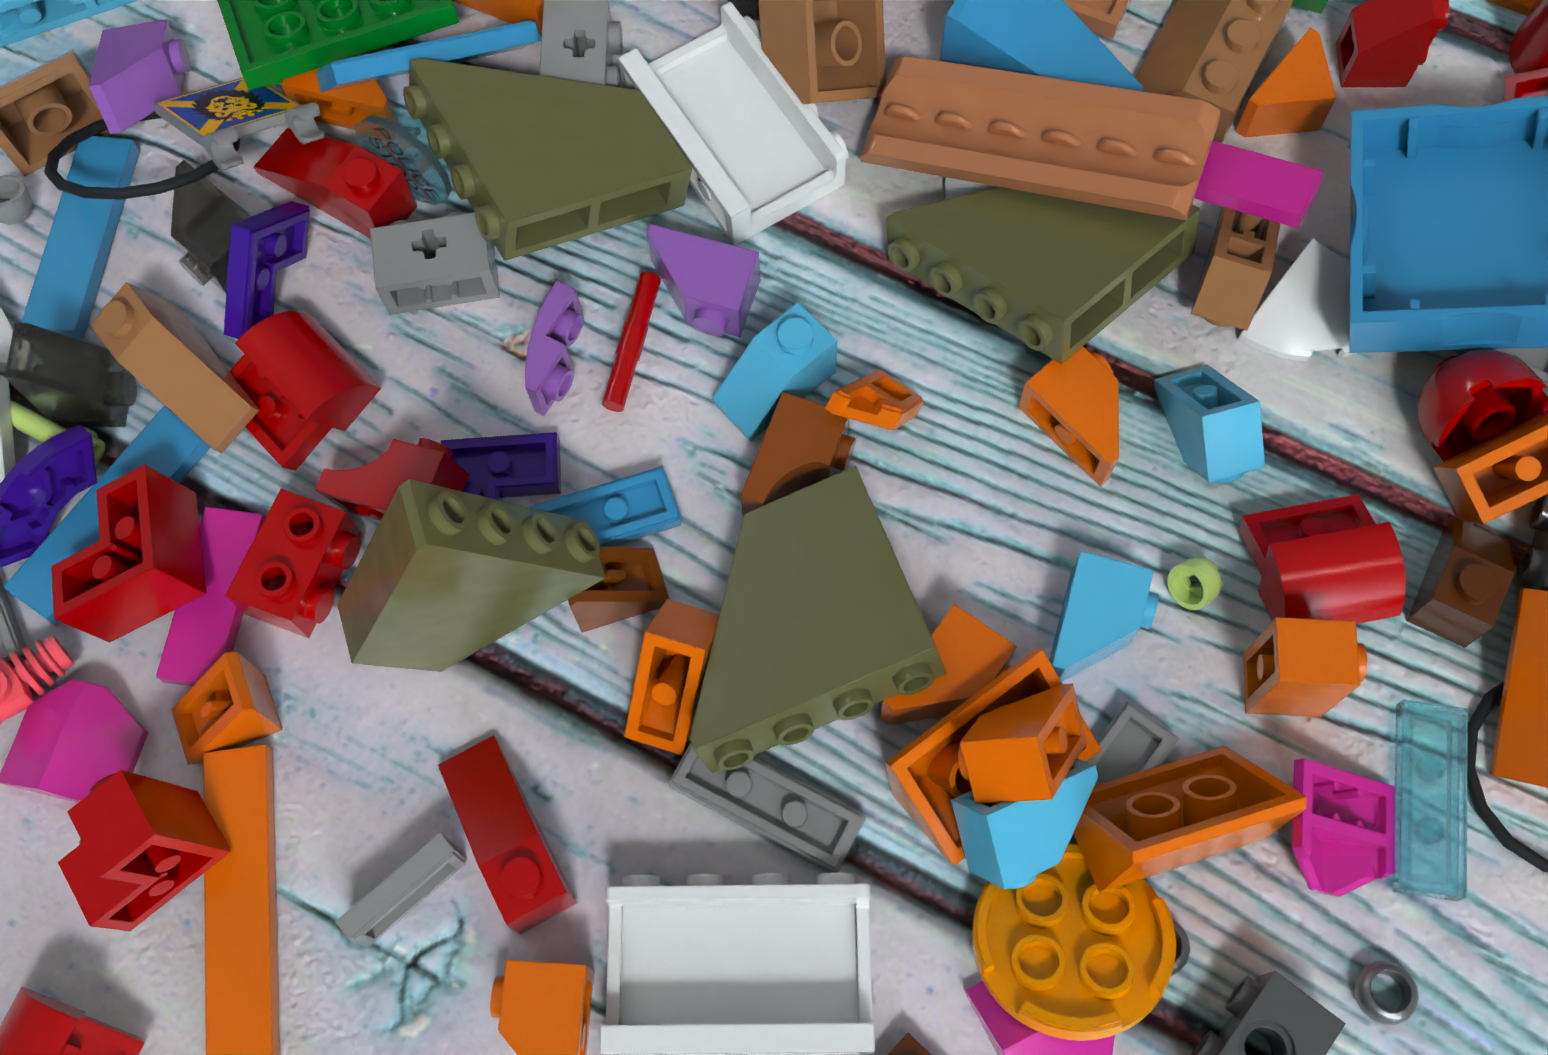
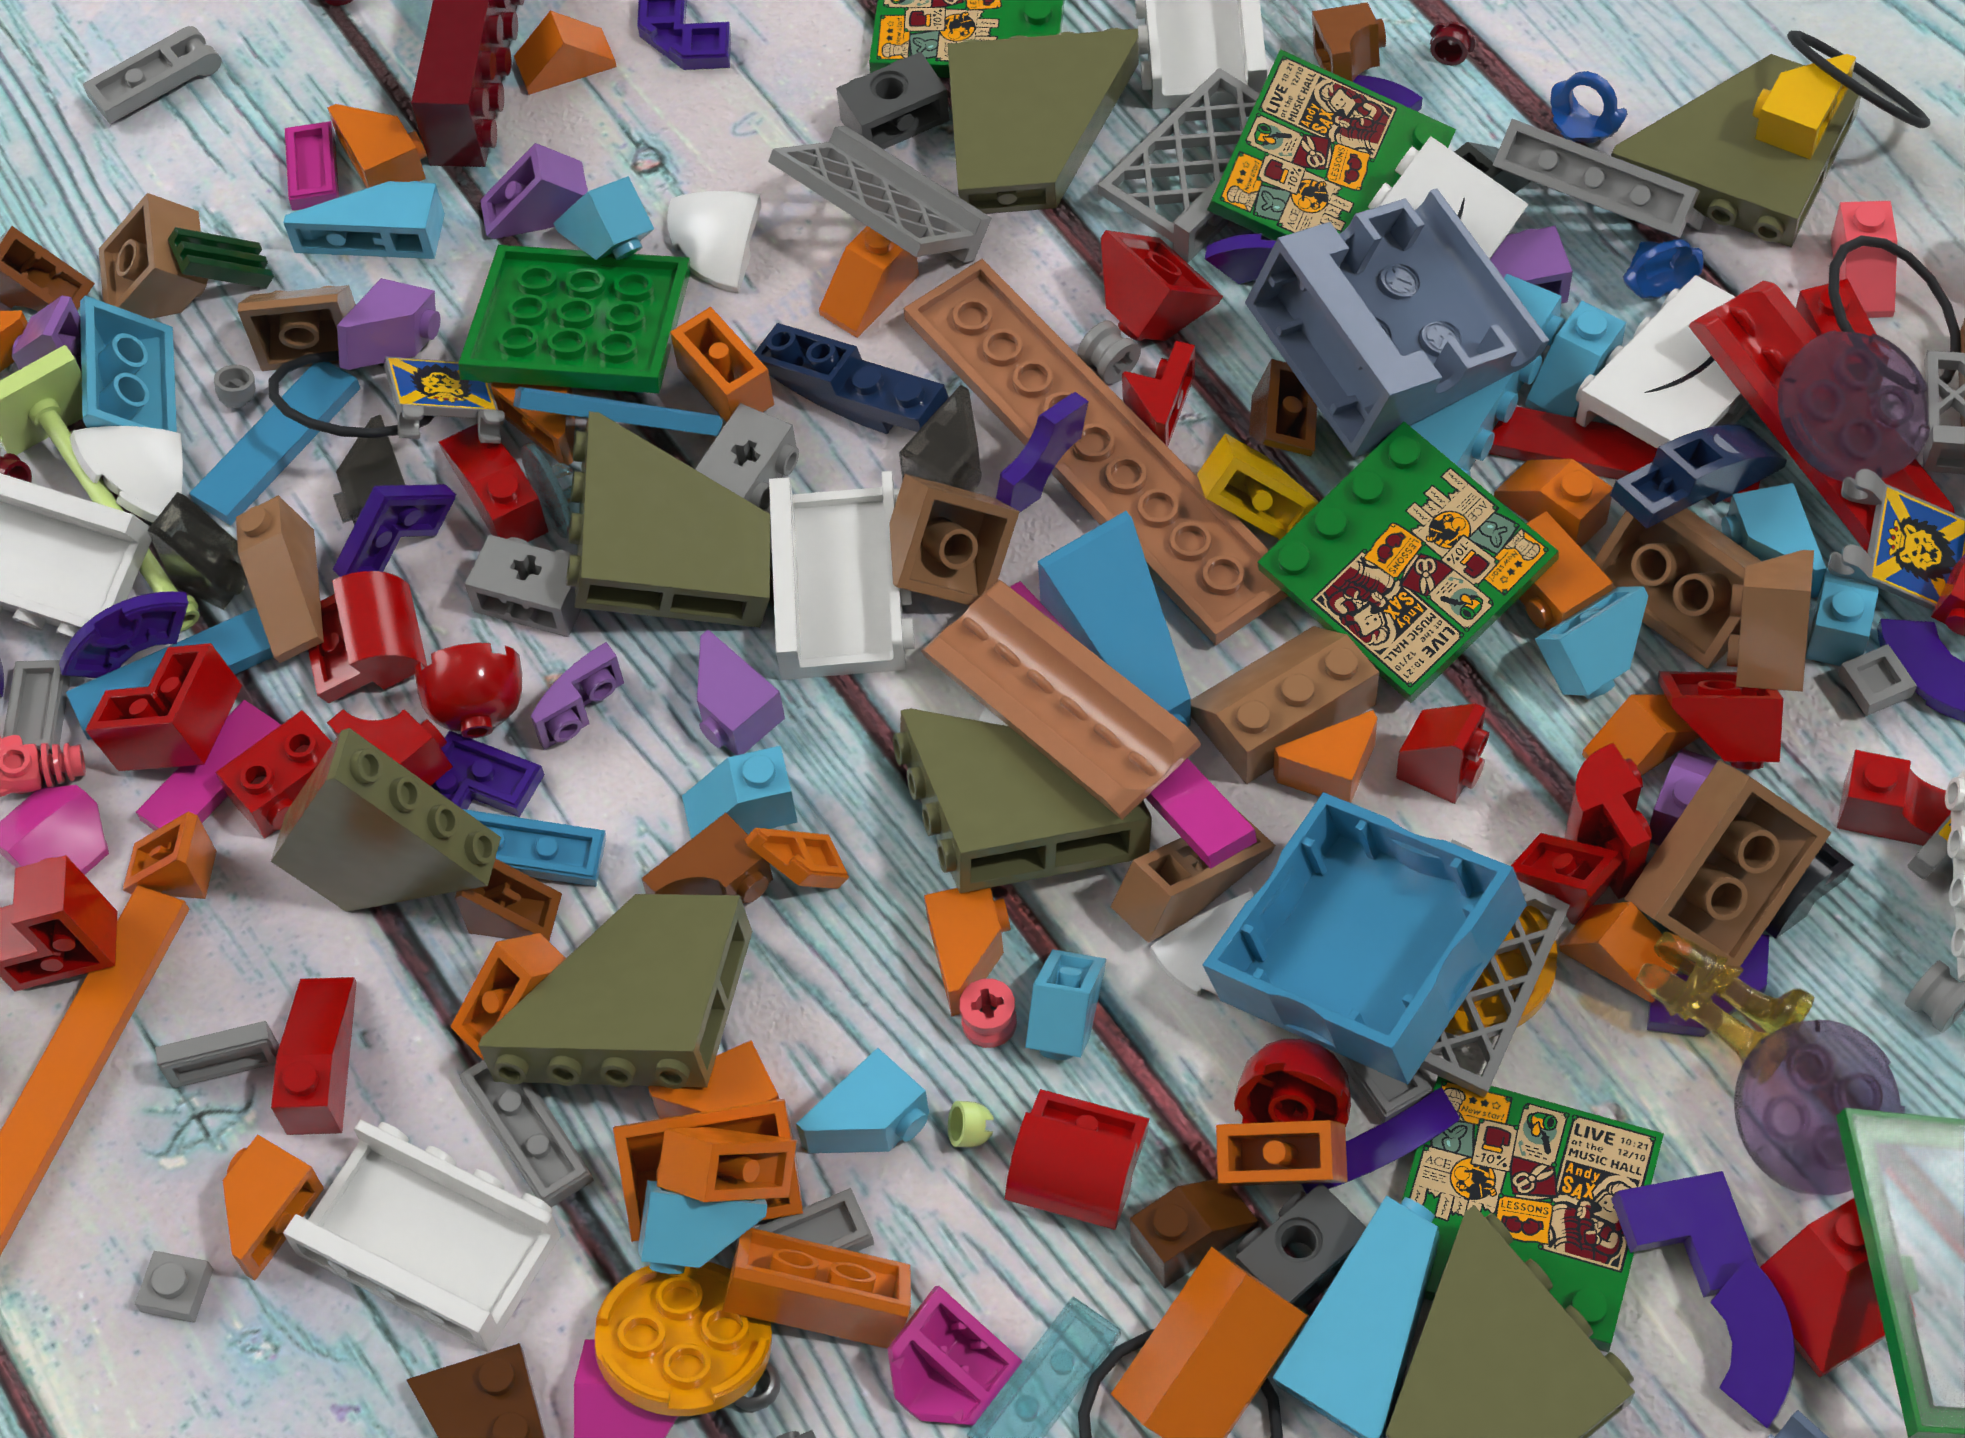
camera: 30 degrees right, 10 degrees down
(444, 387) = (470, 687): none -> red cylinder
(631, 342) = (646, 720): red piece -> none
(1140, 480) = (990, 1026): none -> coral wheel
(1302, 667) = (989, 1221): orange brick -> none

